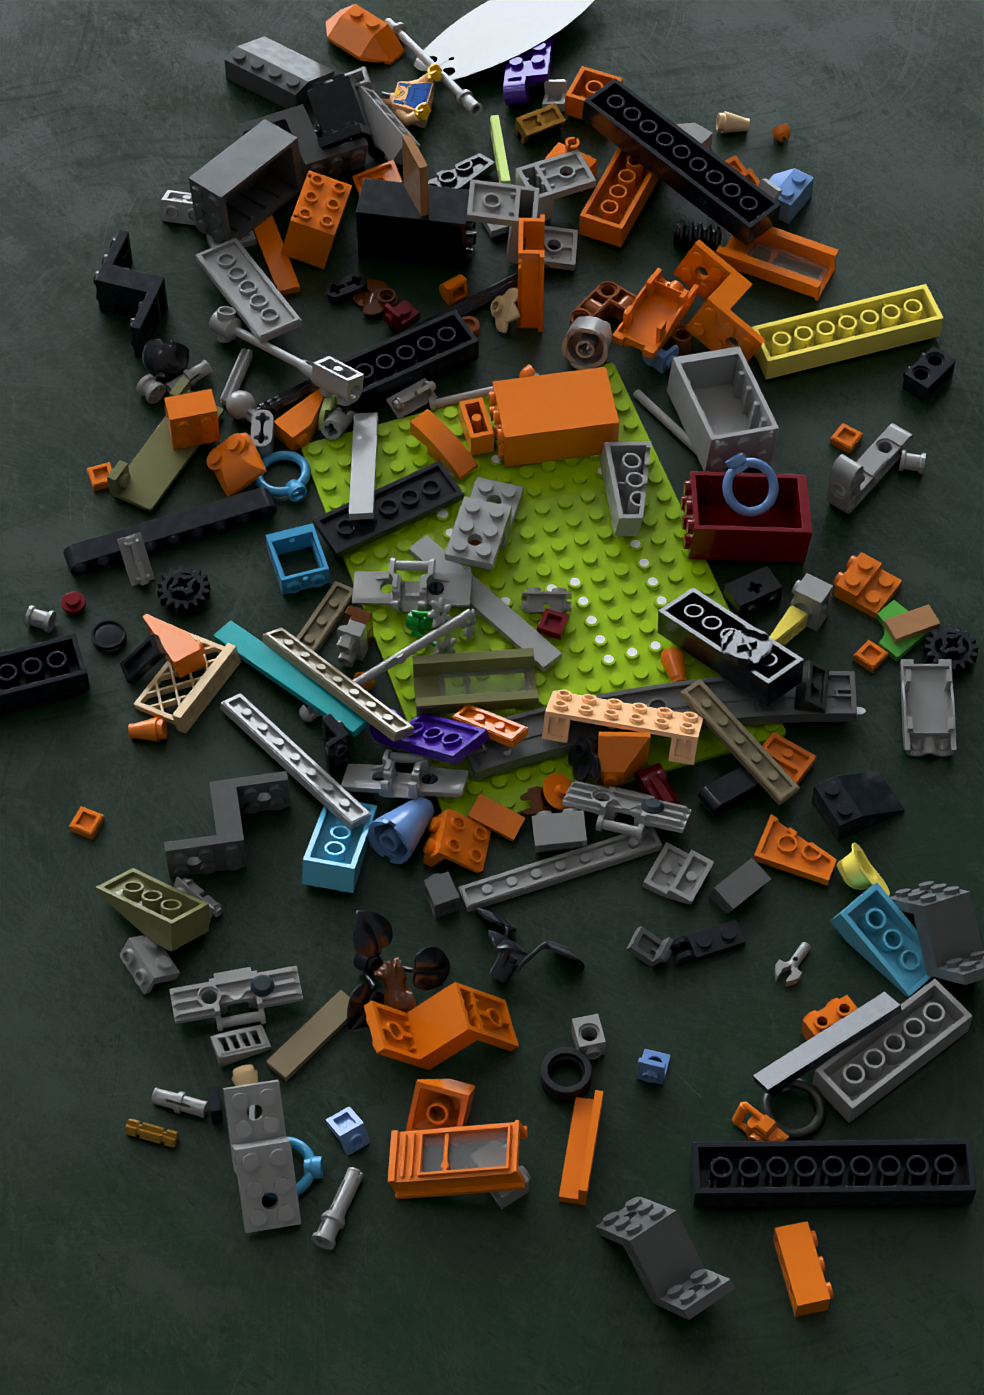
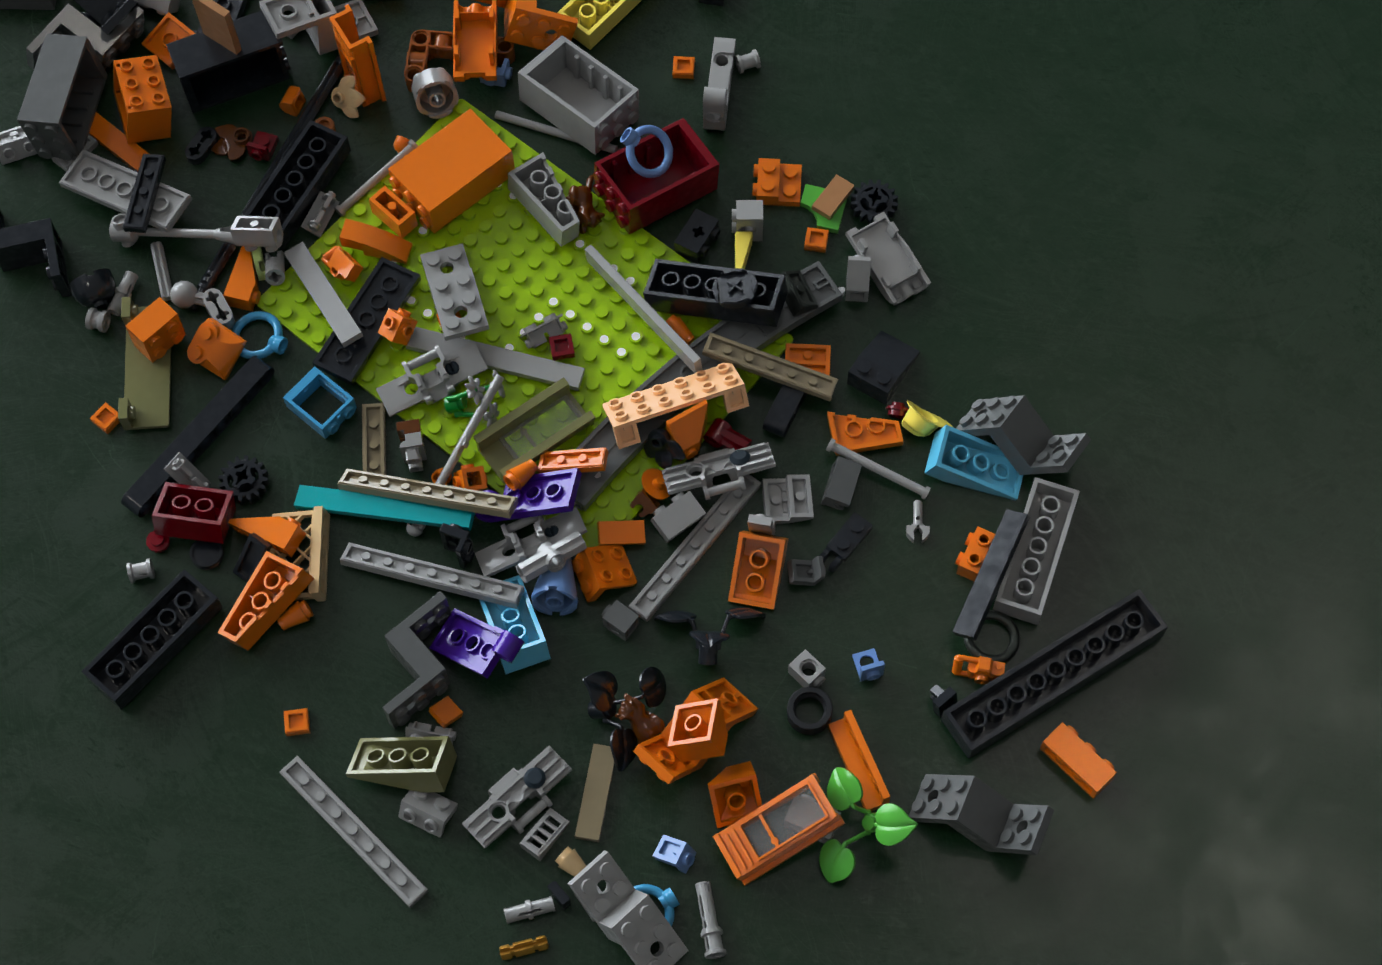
camera: 30 degrees left, 10 degrees up
(71, 946) = (354, 832): none -> light grey tile
(118, 592) = (193, 512): none -> dark red brick
(126, 698) = (263, 600): none -> orange wedge
(224, 887) = (445, 712): none -> orange tile
(261, 298) = (144, 193): none -> black tile
(289, 837) = (491, 645): none -> dark purple hinge
(389, 688) = (475, 475): none -> orange brick
(399, 449) = (342, 264): none -> orange piece
(410, 525) = (397, 326): none -> orange brick
(423, 797) = (551, 557): none -> light grey piece
(431, 711) = (520, 474): none -> orange cone
(436, 1022) = (698, 731): none -> orange slope
(560, 1210) = (889, 823): none -> bright green plant
(604, 919) = (757, 569): none -> orange slope
(632, 878) = (761, 524): none -> light grey slope
(651, 627) = (643, 309): none -> light grey tile
(658, 506) = (582, 203): none -> reddish brown animal
(703, 1132) = (942, 699): none -> black tile
(784, 890) = (877, 468): none -> light grey bar
(841, 848) = (896, 410): none -> dark red plate
(884, 708) = (858, 278): none -> light grey slope

